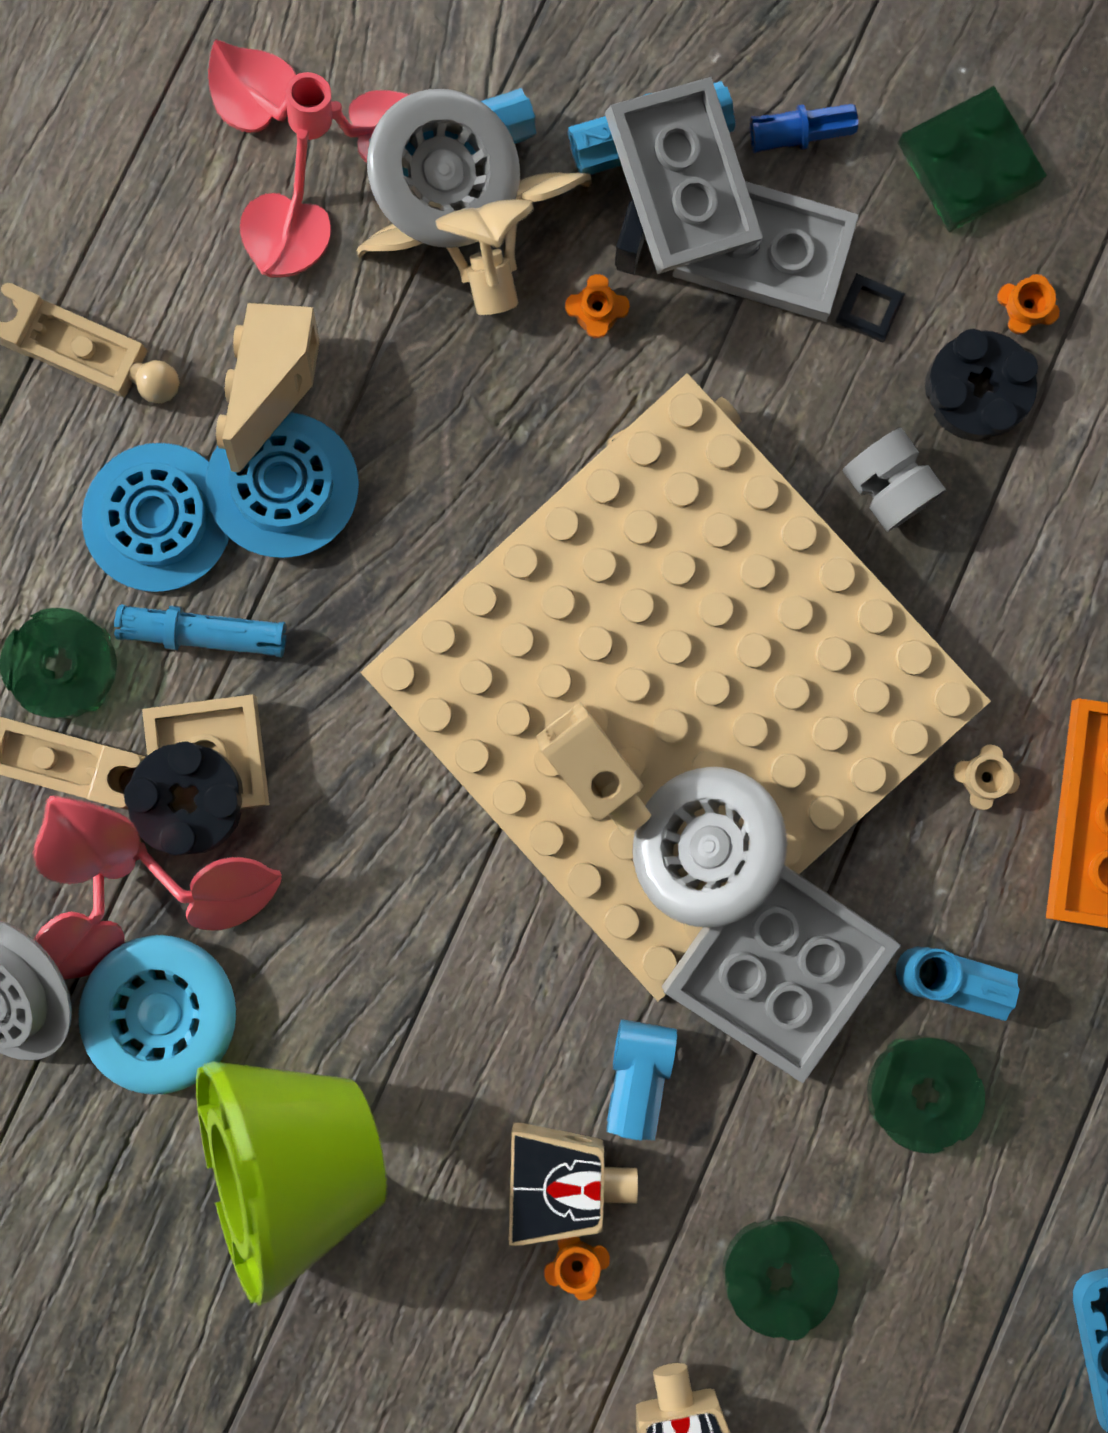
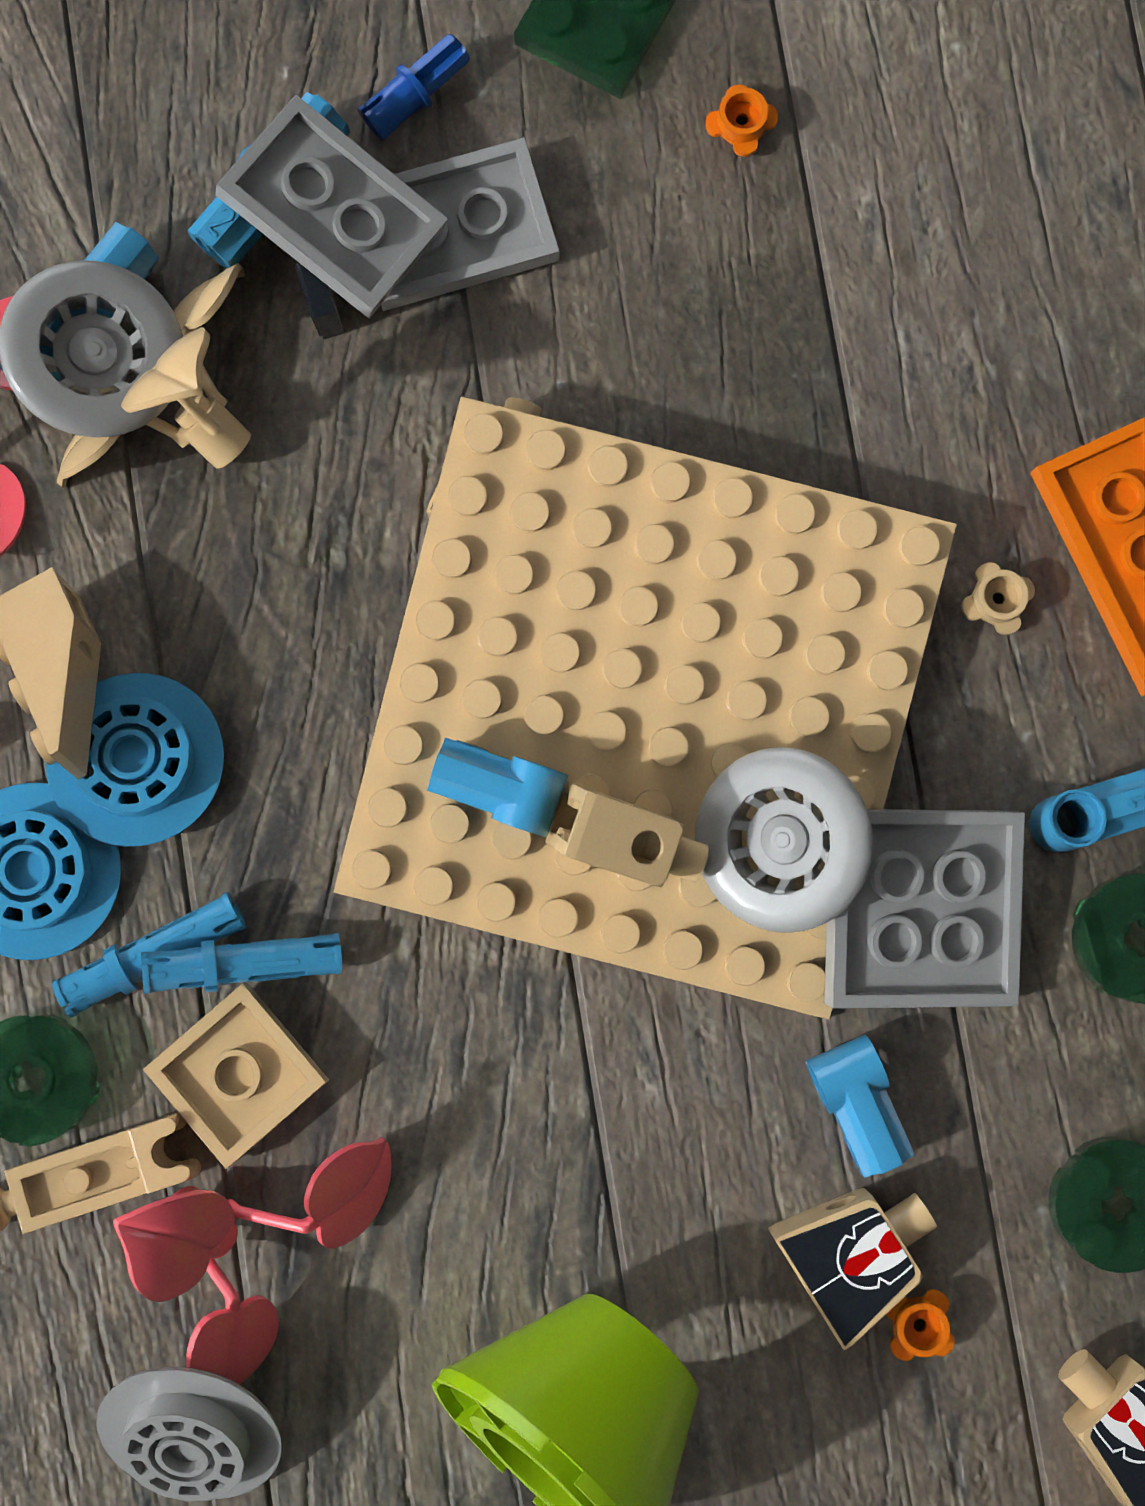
camera: 30 degrees left, 0 degrees up
(152, 794) = (210, 1150): black plate -> none
(156, 1014) = (354, 1357): medium azure wheel -> none
(252, 674) = (239, 963): none -> dark azure pin
(535, 681) = (512, 789): none -> dark azure piece
(593, 321) = (340, 401): orange plate -> none
(860, 325) = (598, 242): black tile -> none
(894, 479) = (725, 371): light grey wheel -> none
(1010, 372) = (765, 195): black plate -> none

